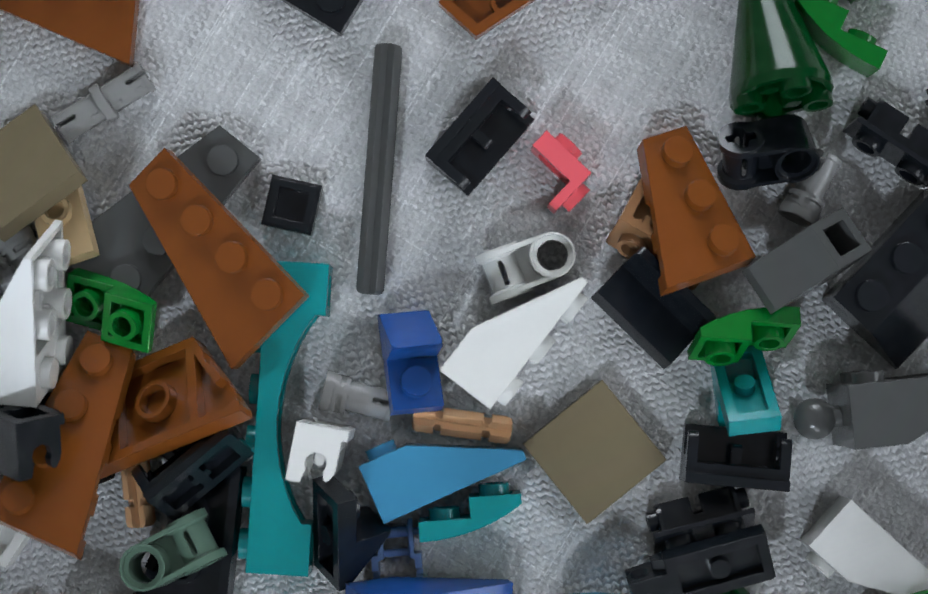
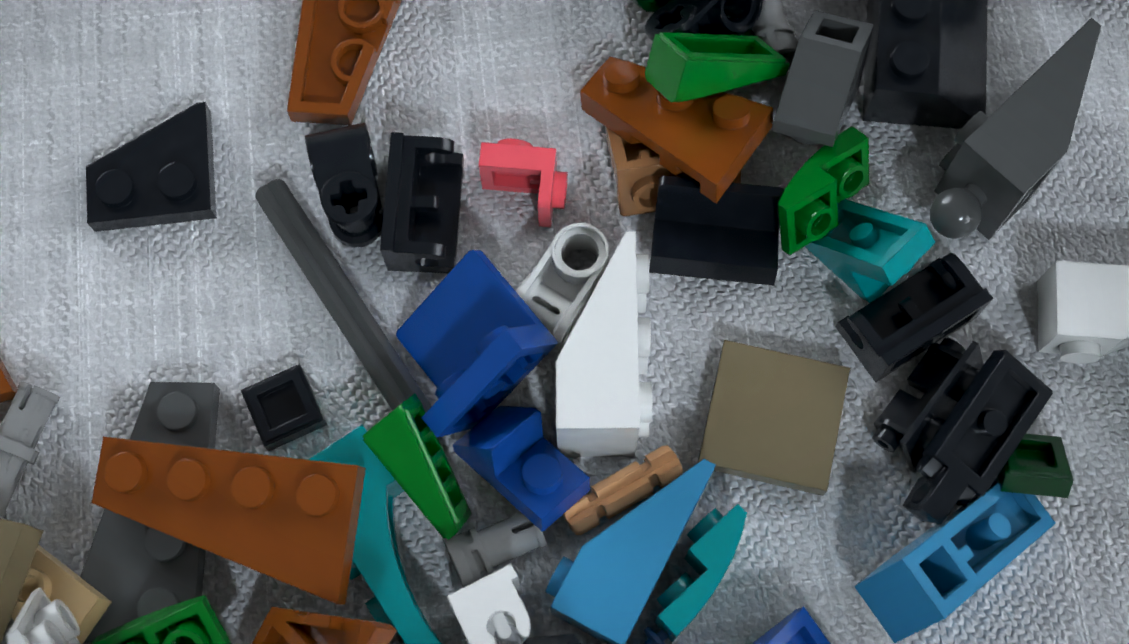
camera: 35 degrees left, 15 degrees down
(346, 311) = (419, 466): none -> green slope
(439, 261) = (473, 343): none -> blue bracket
(446, 75) = (346, 178): none -> black piece
(722, 190) = (706, 64): none -> green slope

